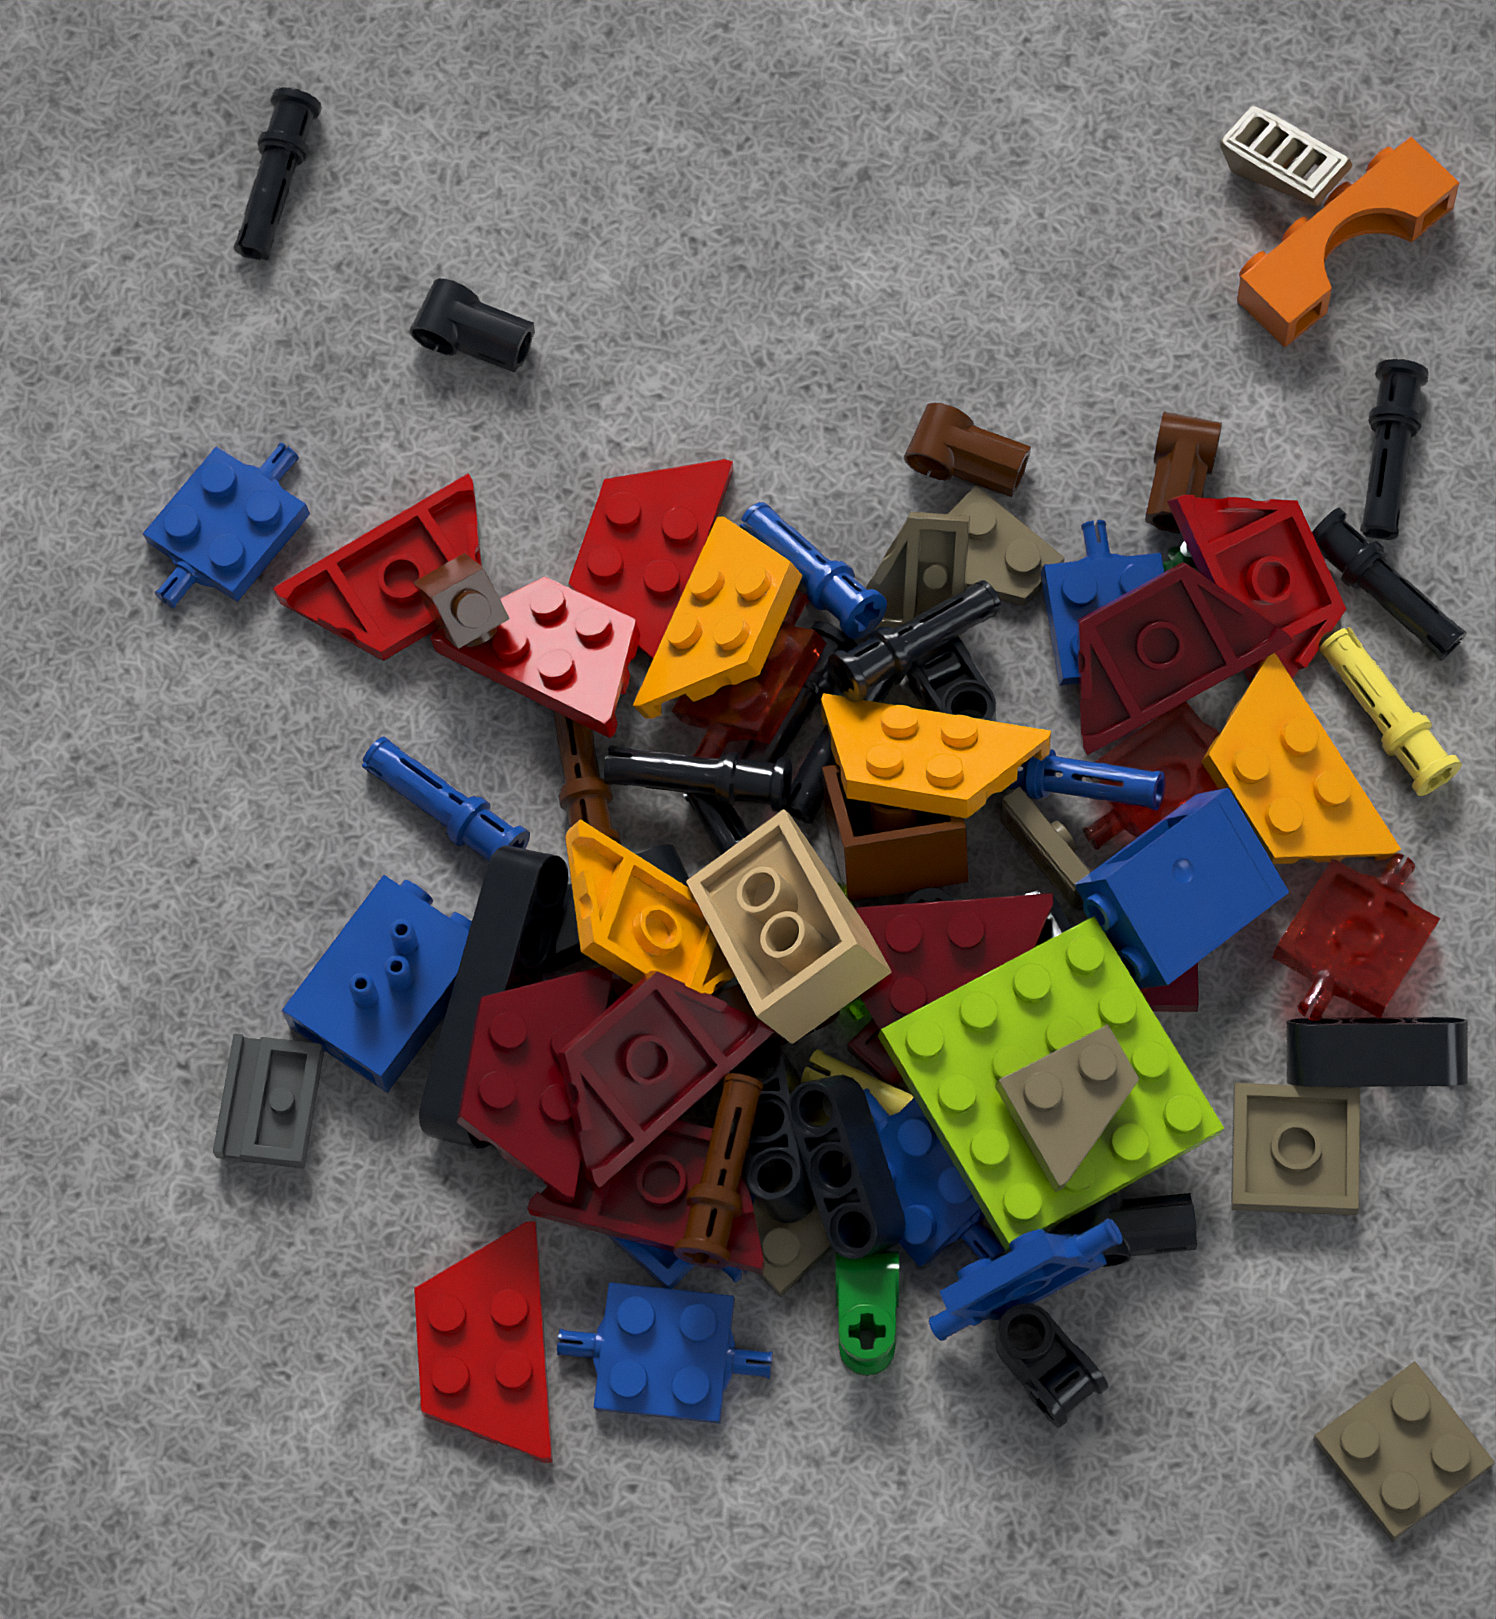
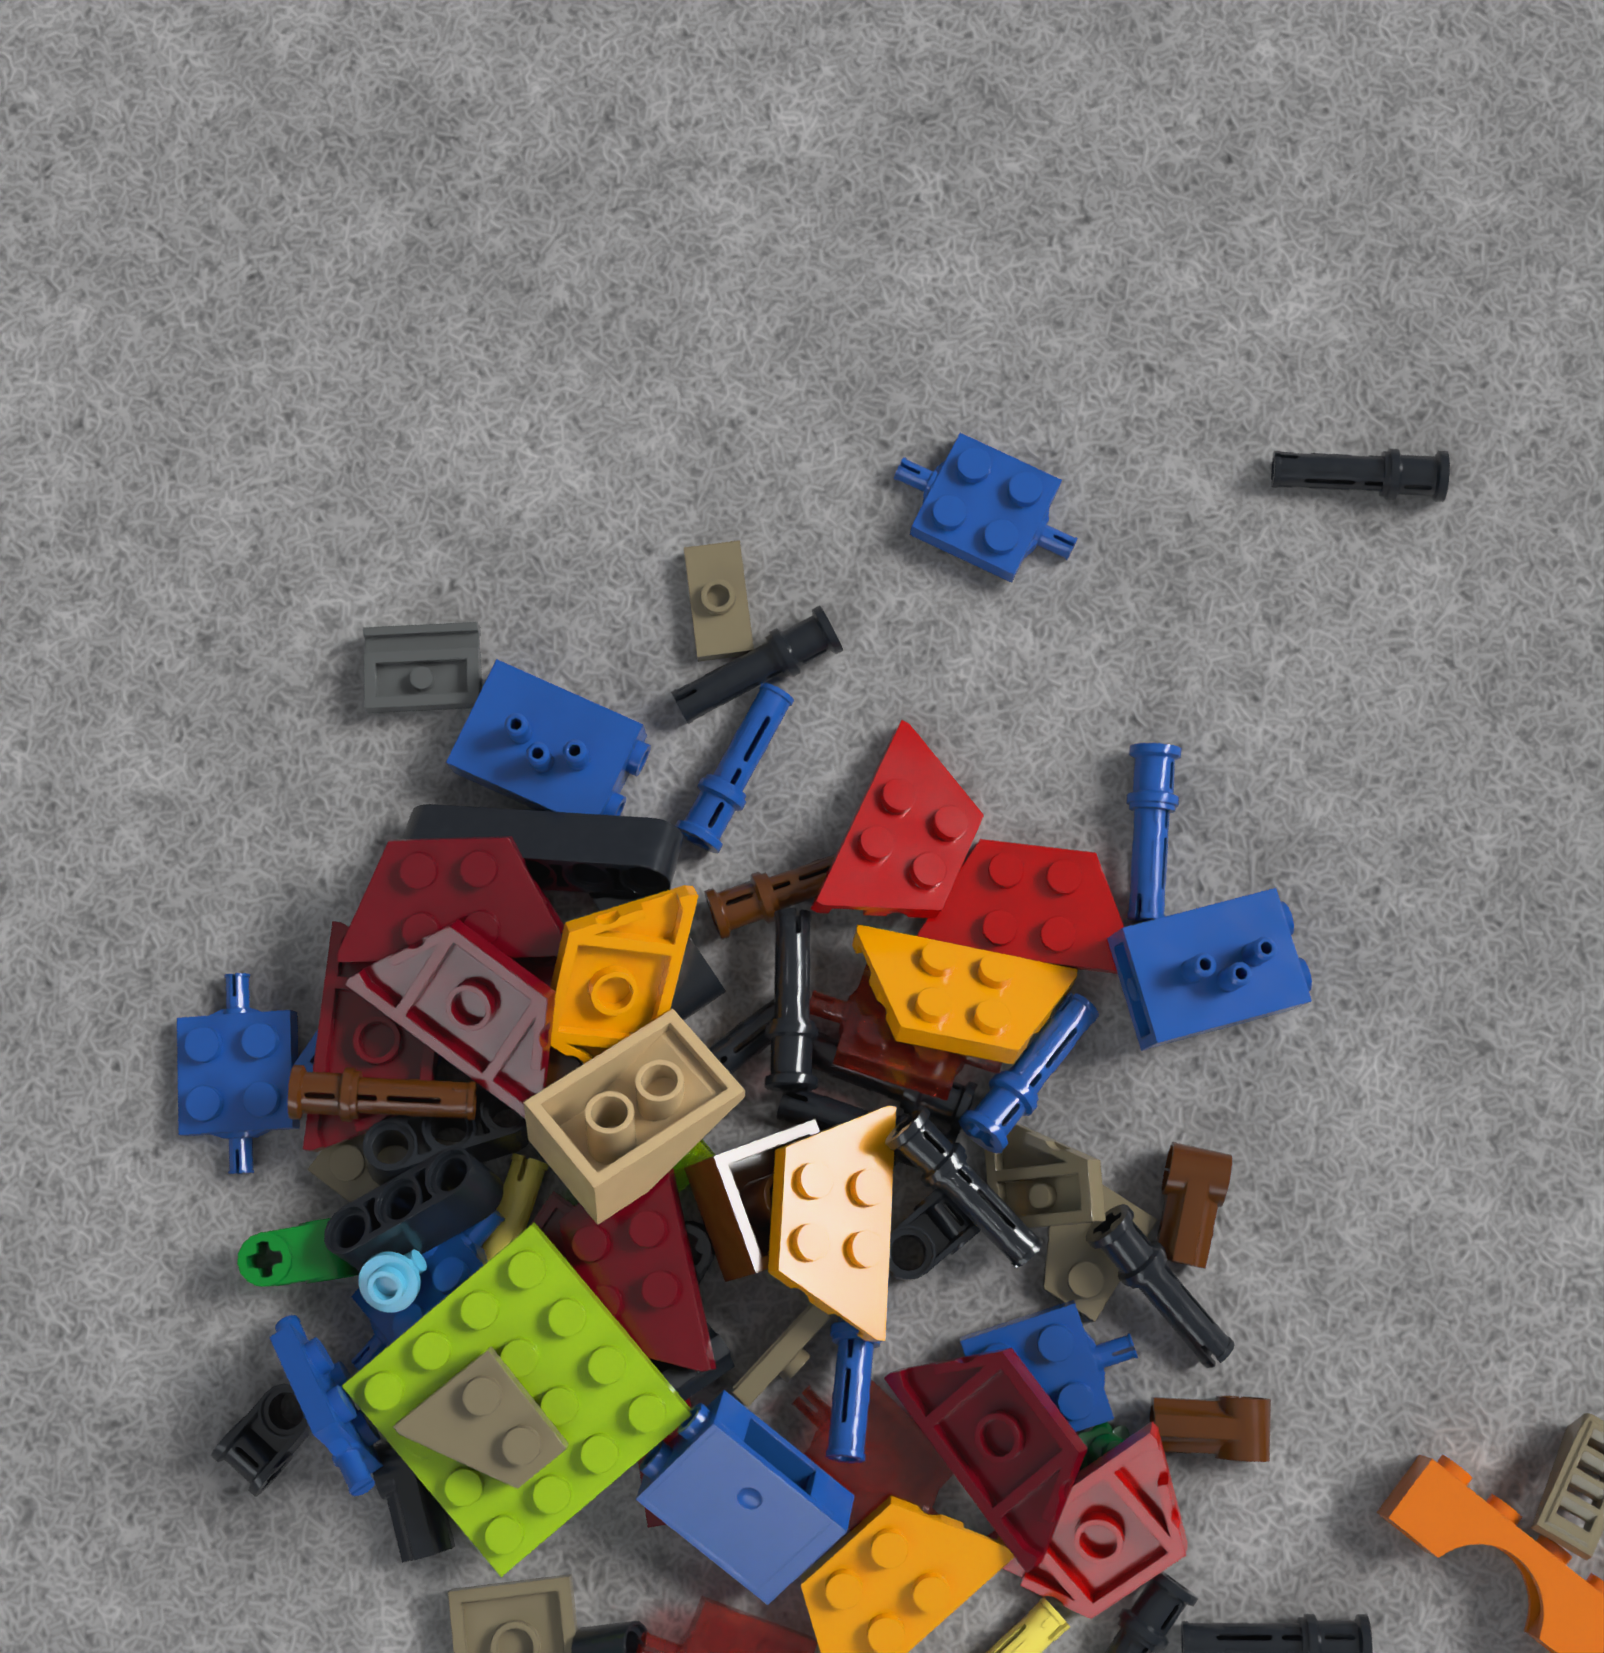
camera: 80 degrees right, 10 degrees up
(263, 797) = (718, 600): none -> dark tan plate
(336, 740) = (780, 654): none -> black pin
(368, 584) = (960, 679): red wing -> none
(459, 321) = (1234, 683): black piece -> none
(462, 602) = (926, 740): brick -> none
(487, 1345) = (223, 911): red wing -> none
(566, 419) = (1152, 804): none -> blue pin
(742, 391) = (1210, 968): none -> blue piece
(912, 1195) = (391, 1280): none -> medium azure plate
(1020, 494) = (1144, 1267): none -> black pin

